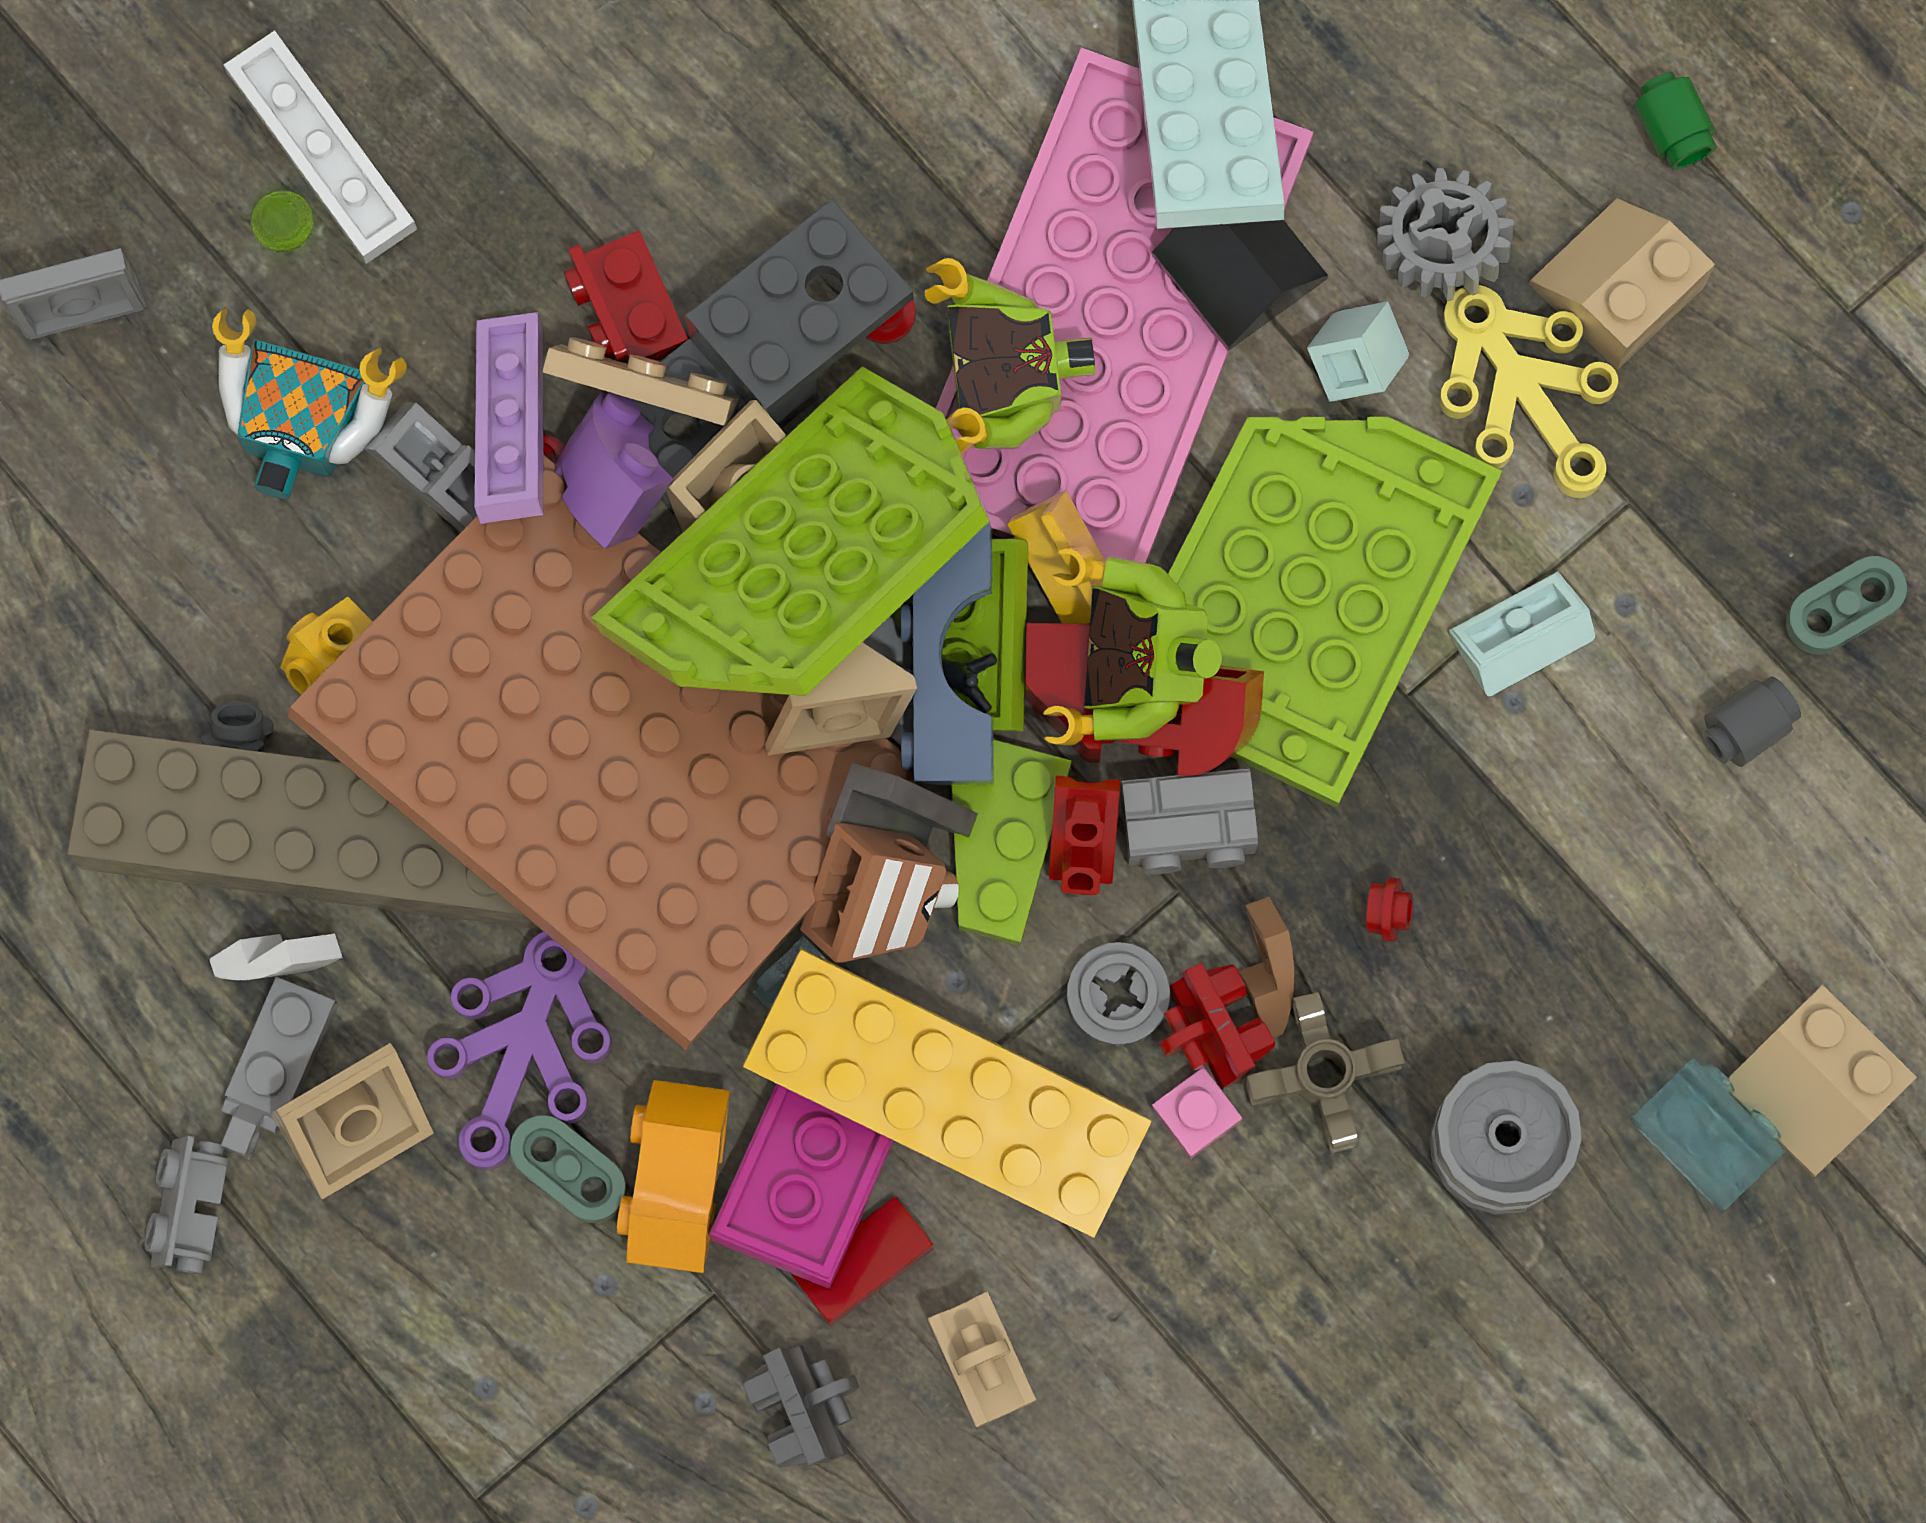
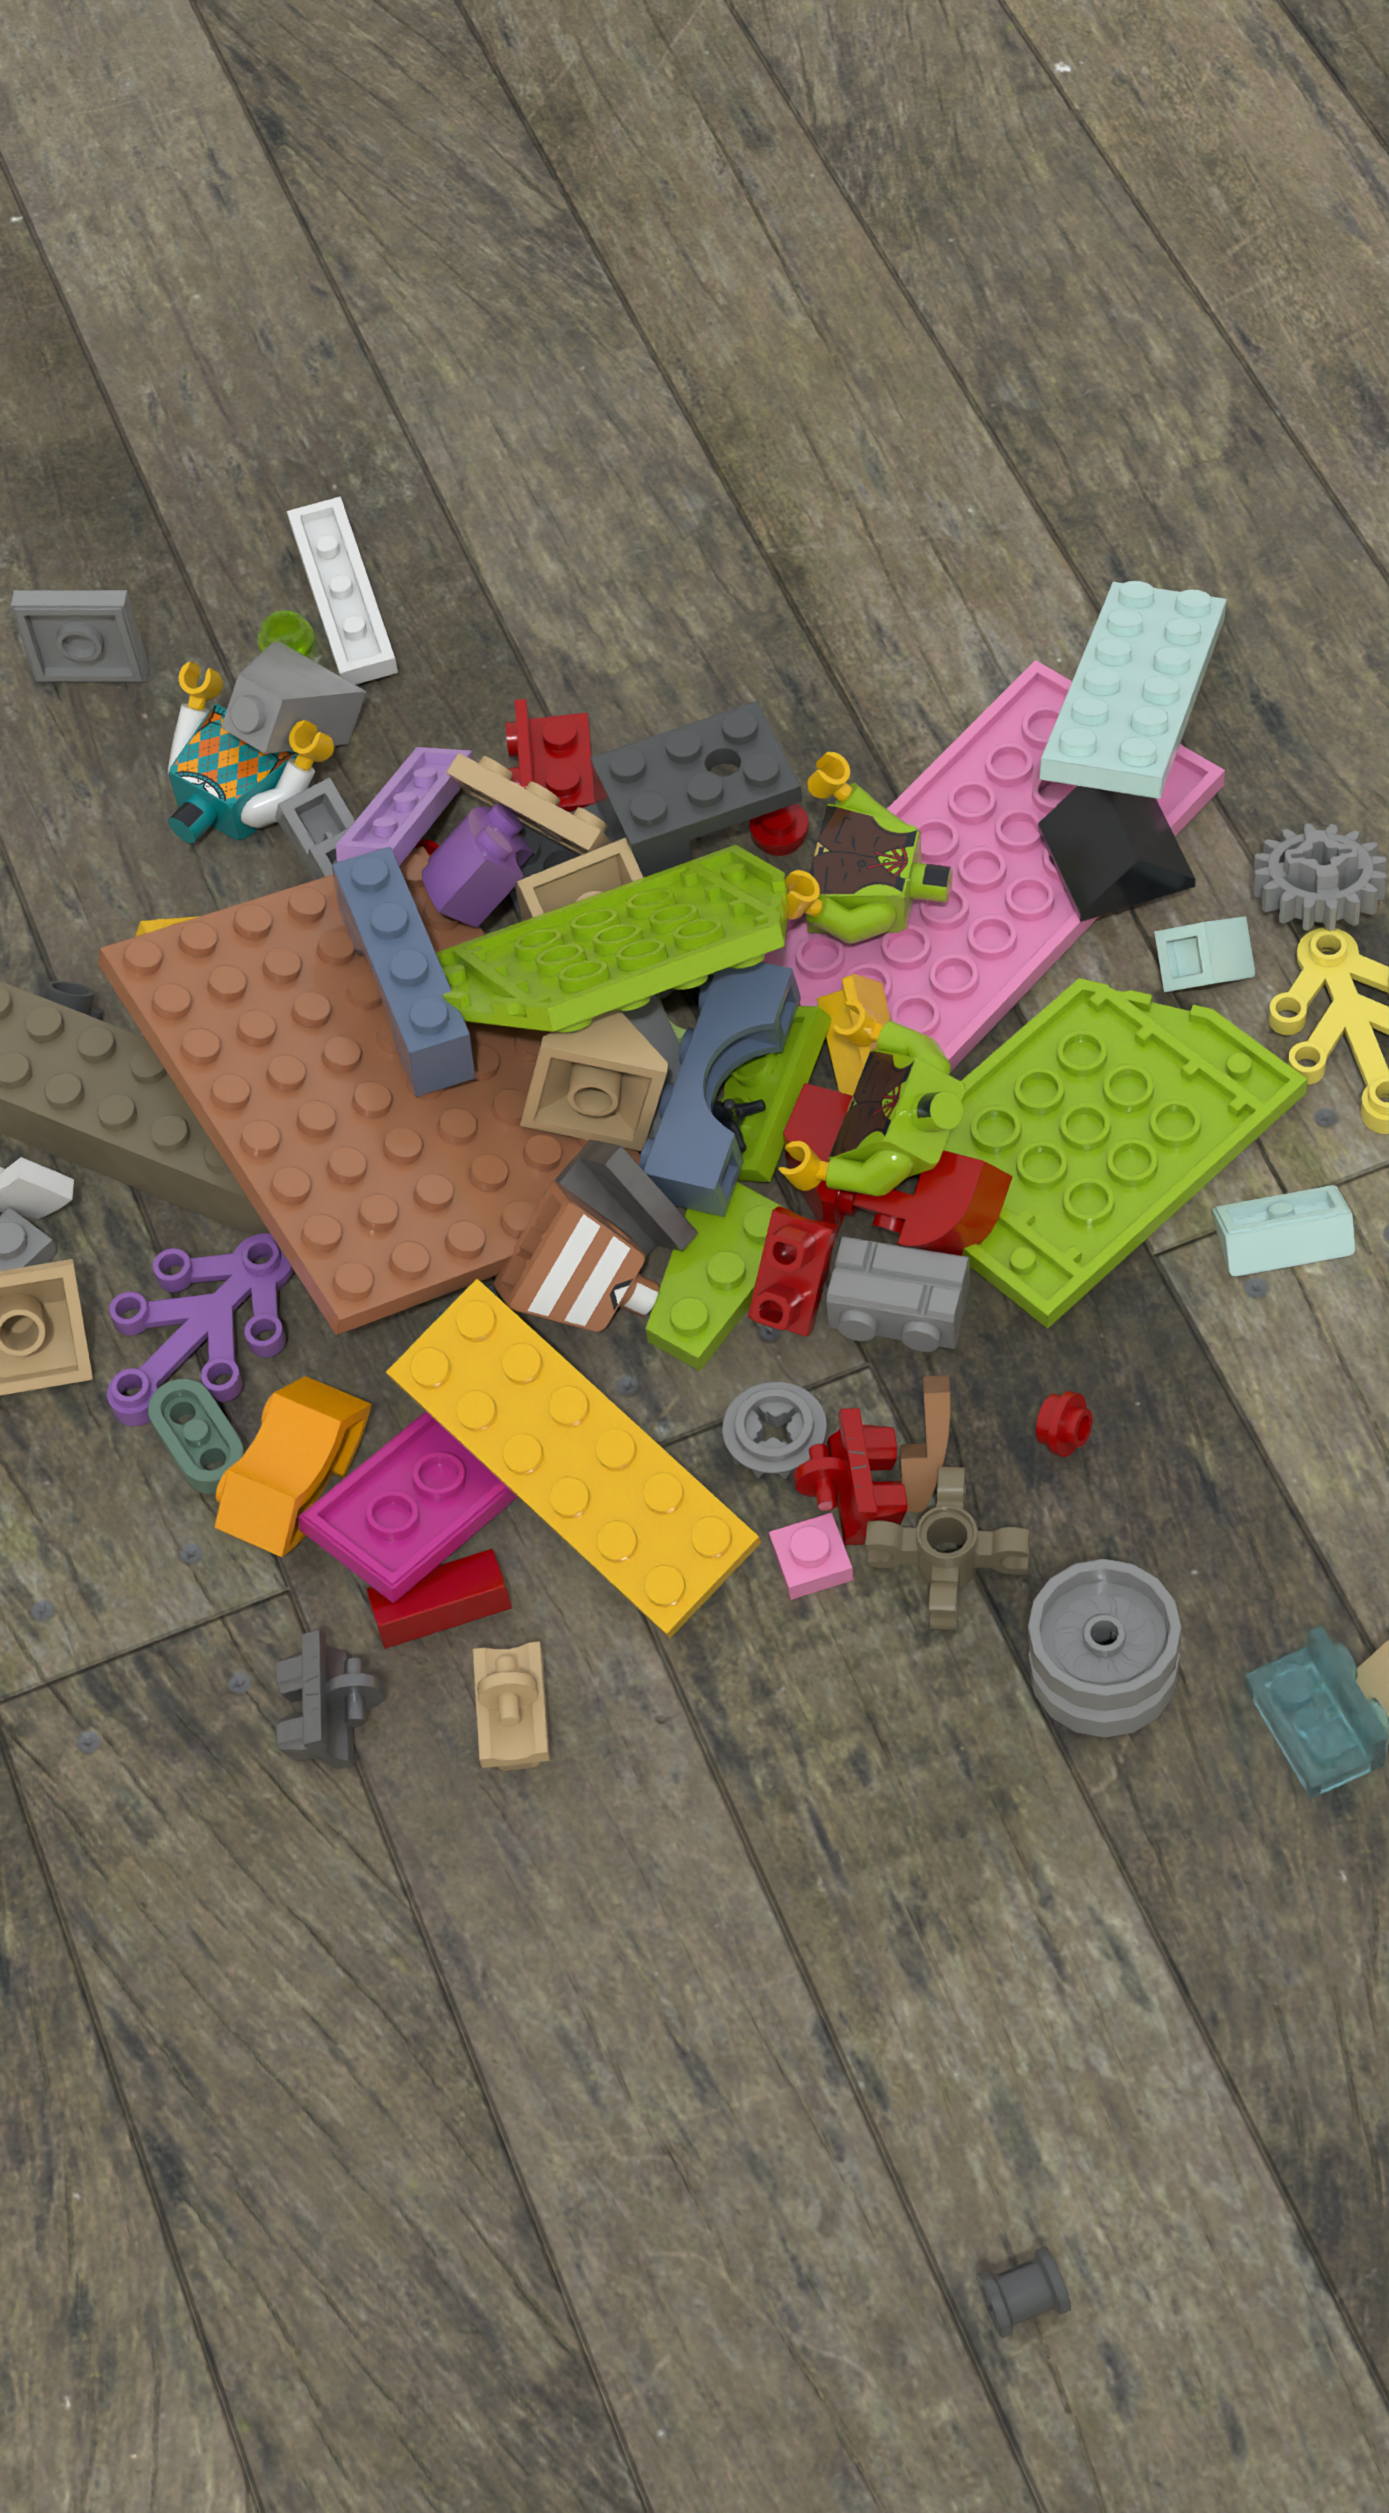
camera: 25 degrees right, 20 degrees down
(331, 316) = (285, 689): none -> light grey slope
(604, 632) = (411, 982): none -> sand blue arch

